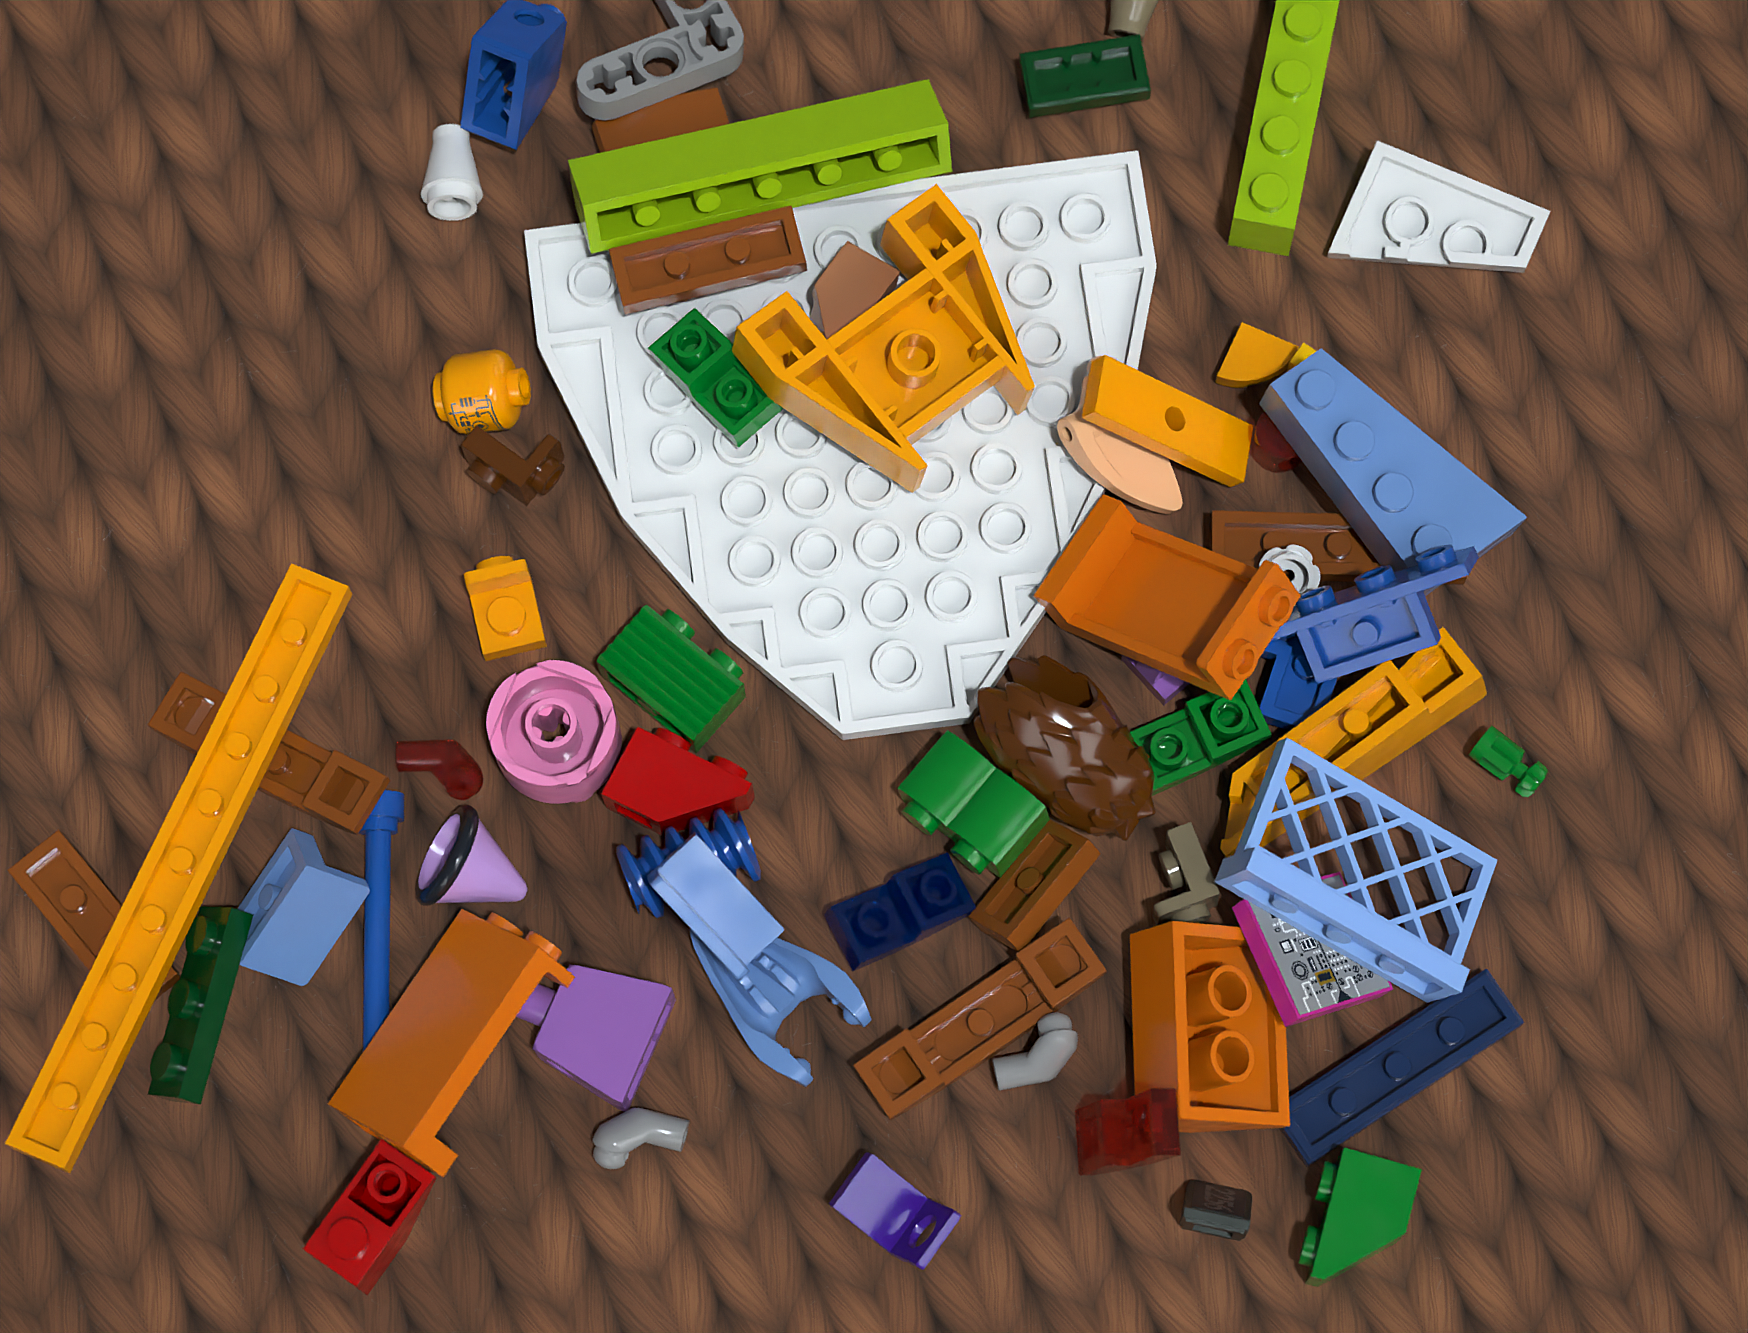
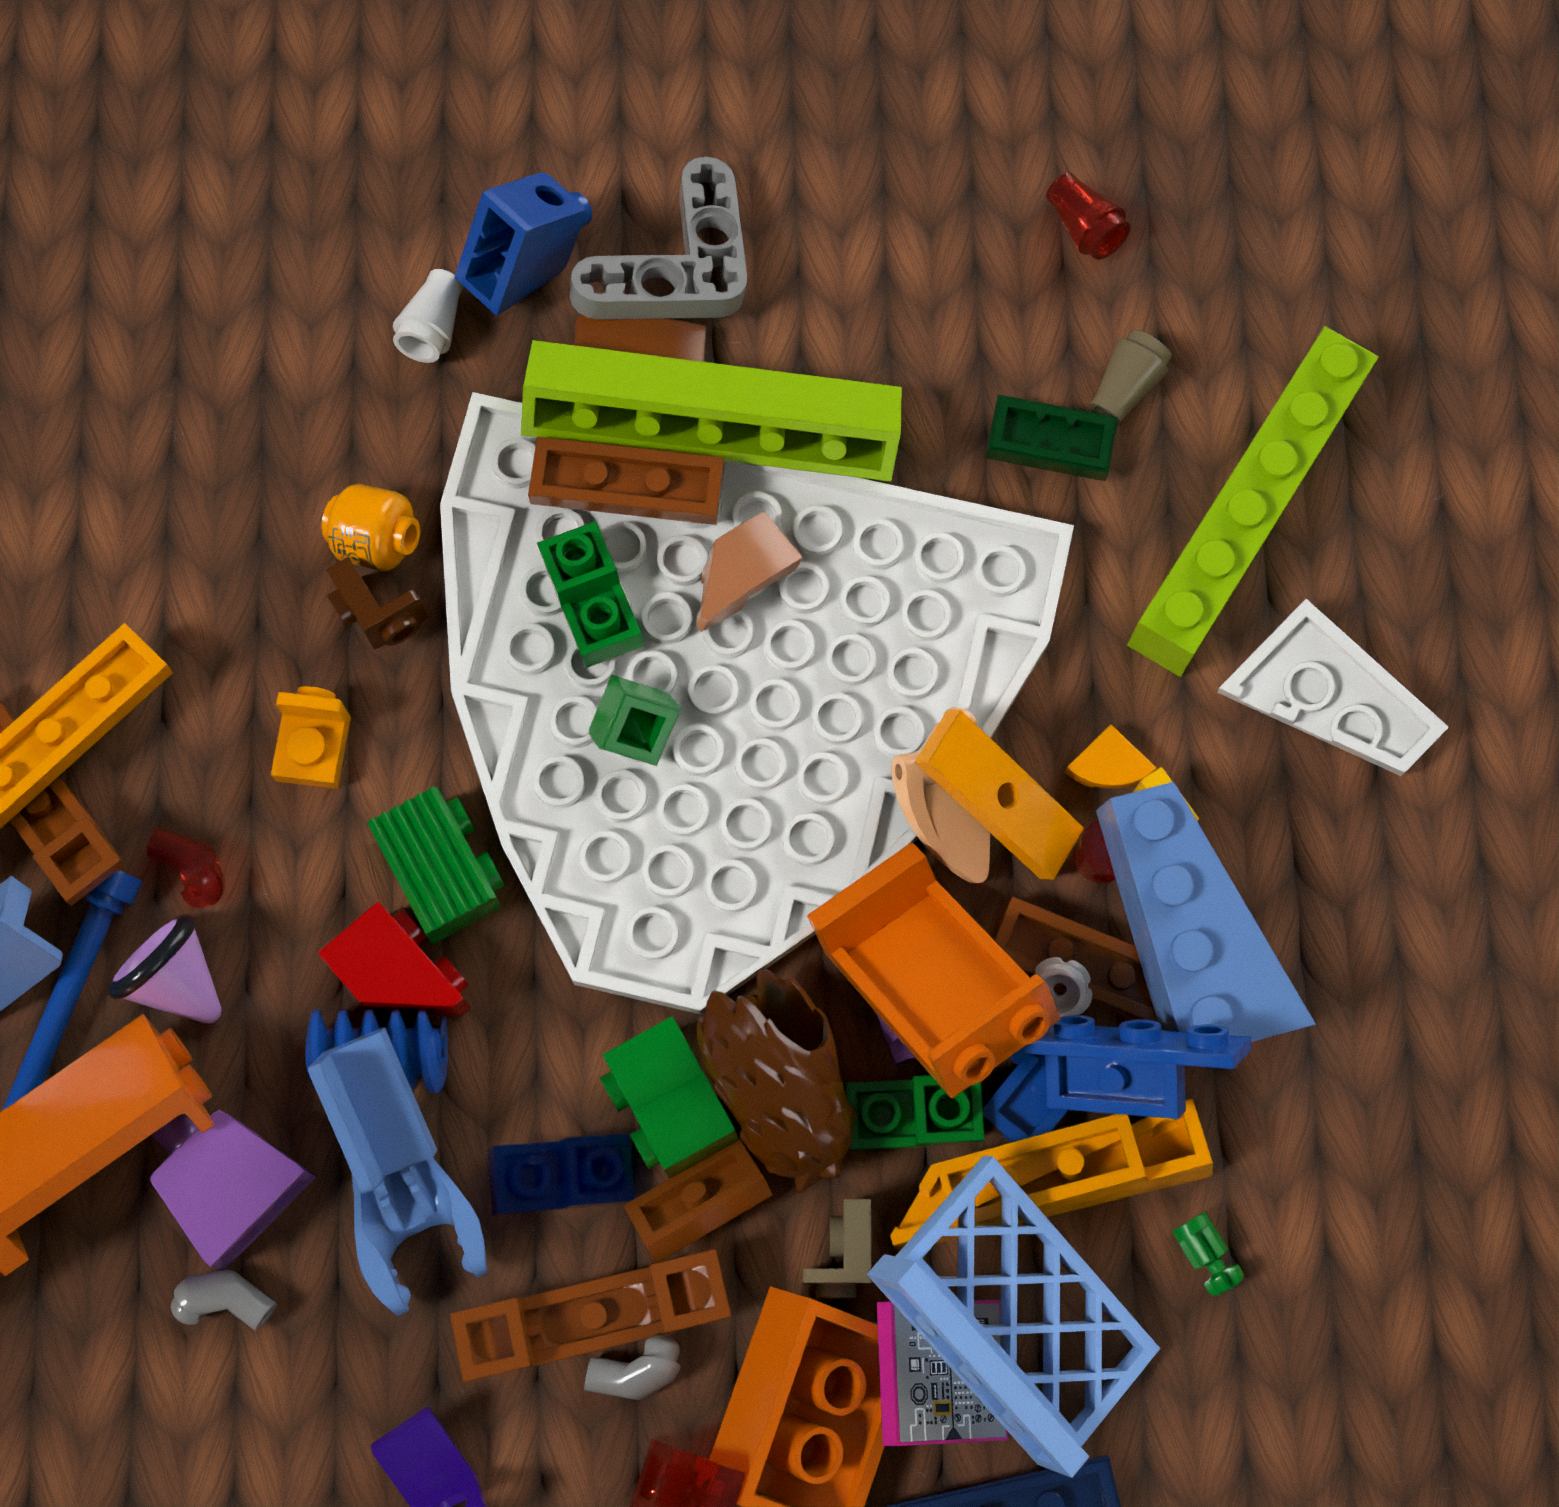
camera: 15 degrees right, 0 degrees up
(538, 701) = (318, 844): bright pink brick -> none
(804, 477) = (634, 720): none -> green slope
(903, 359) = (770, 641): light orange wedge -> none

